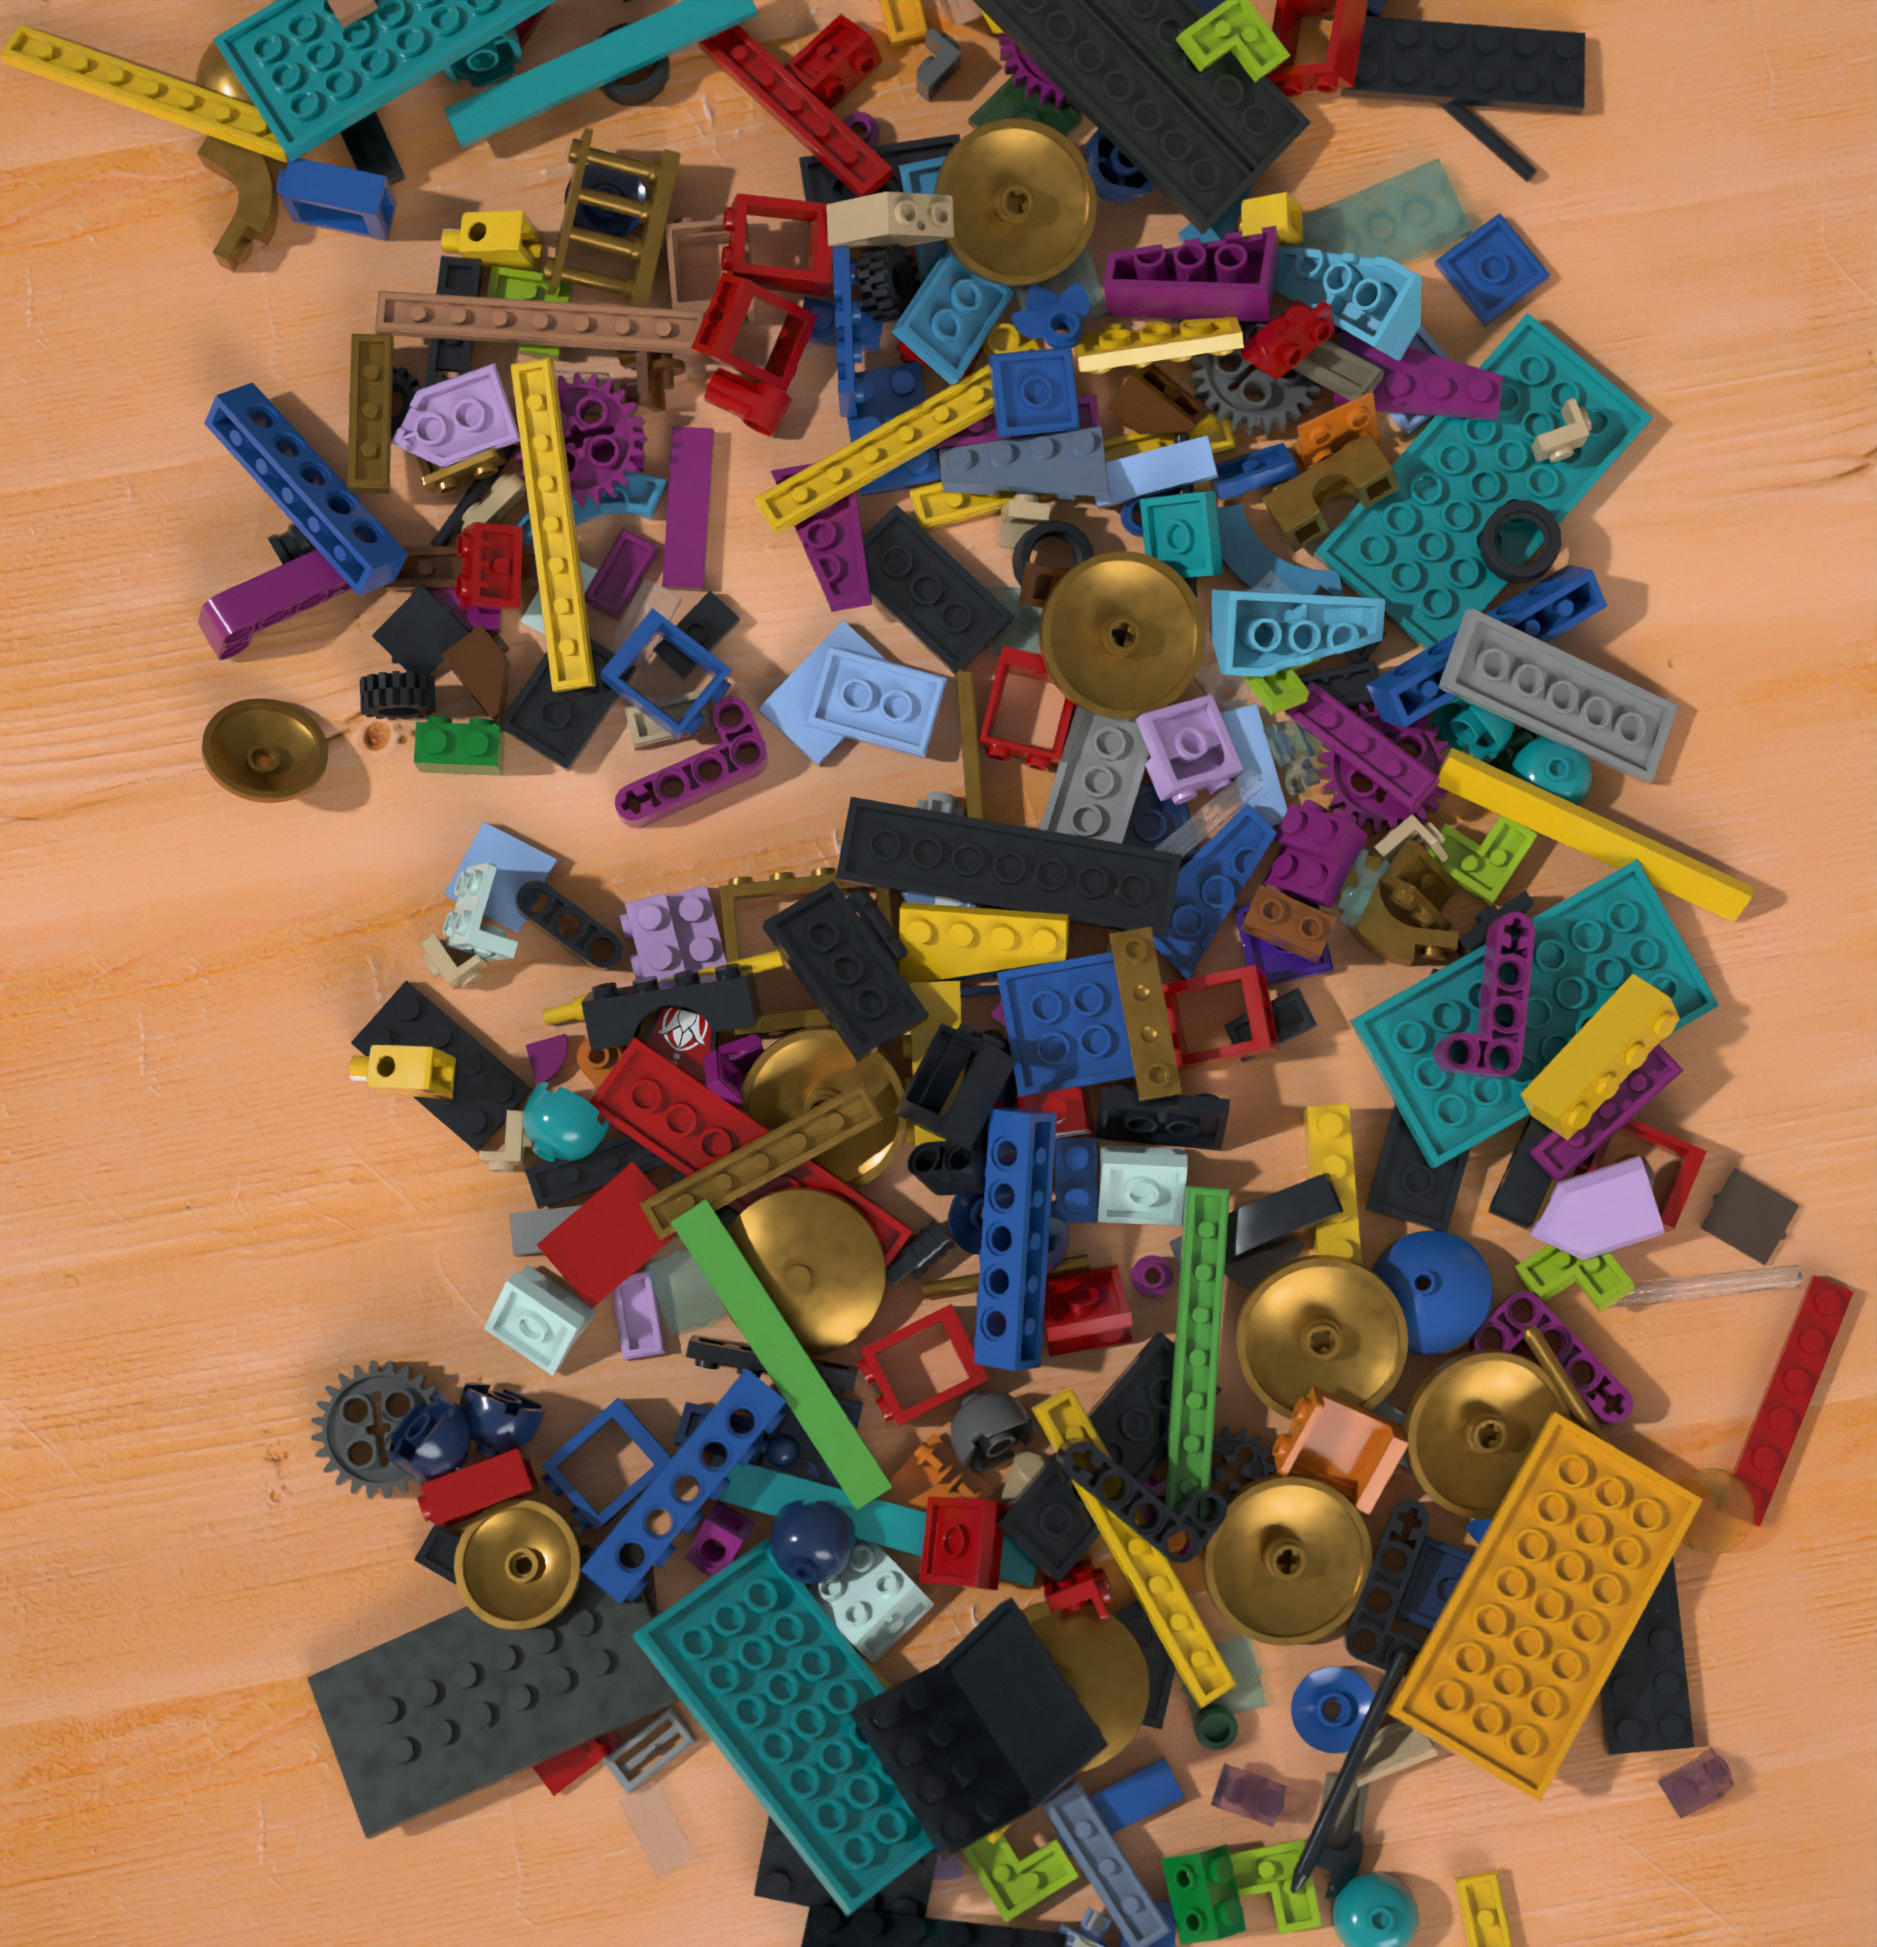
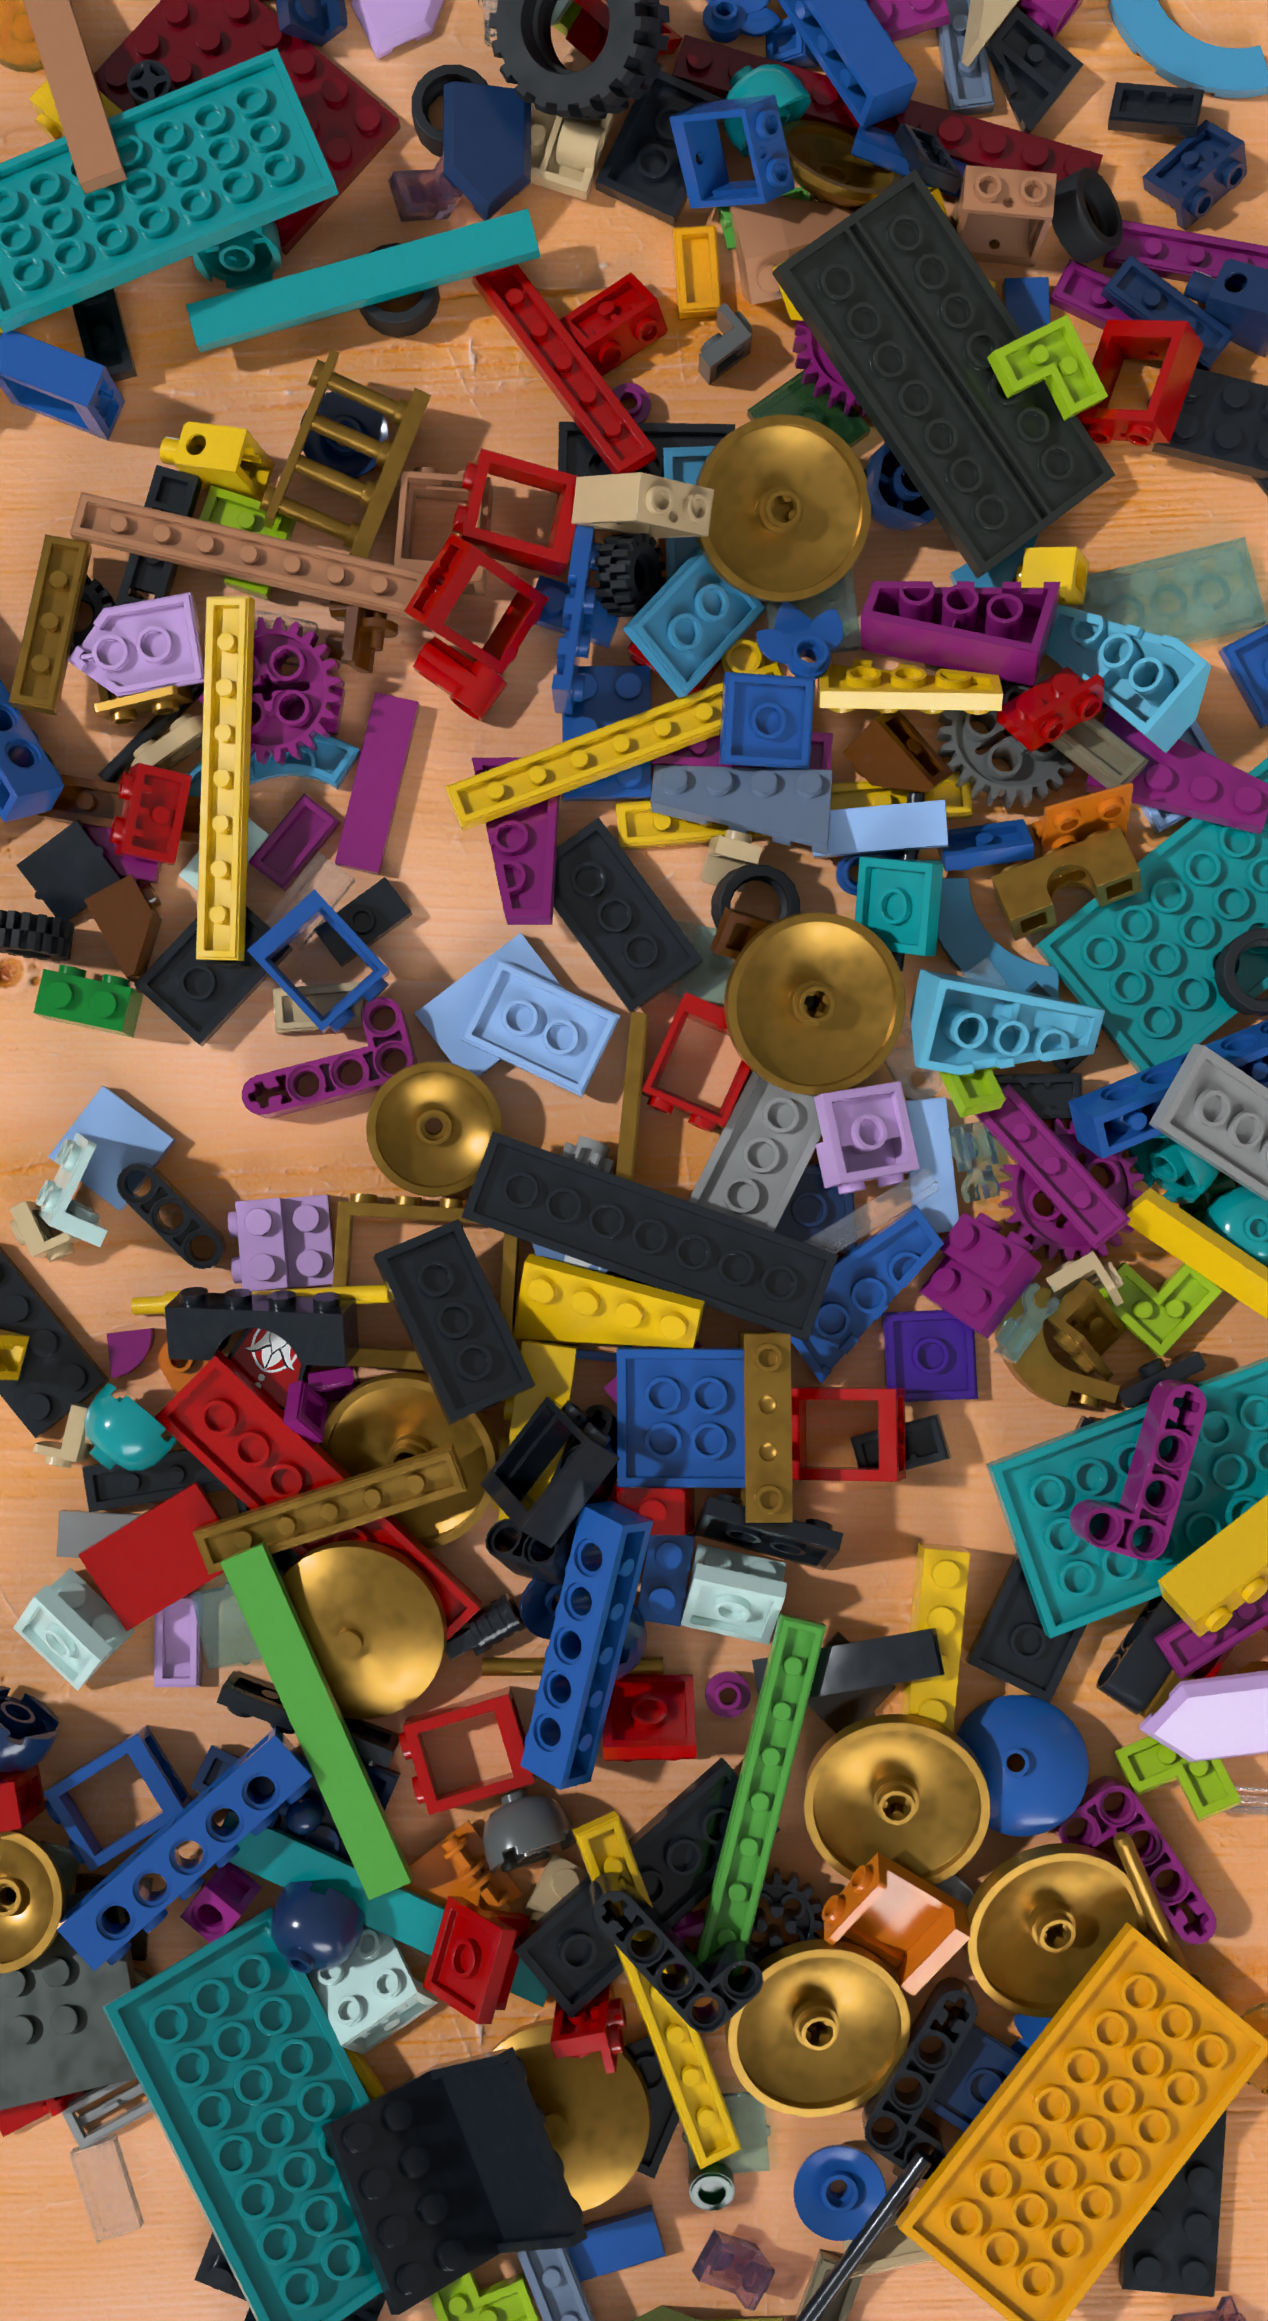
camera: 10 degrees right, 5 degrees up
(819, 787) = (424, 1160): none -> pearl gold dish
(877, 925) = (497, 1274): black axle -> none
(1288, 924) = (939, 1346): dark orange brick -> none

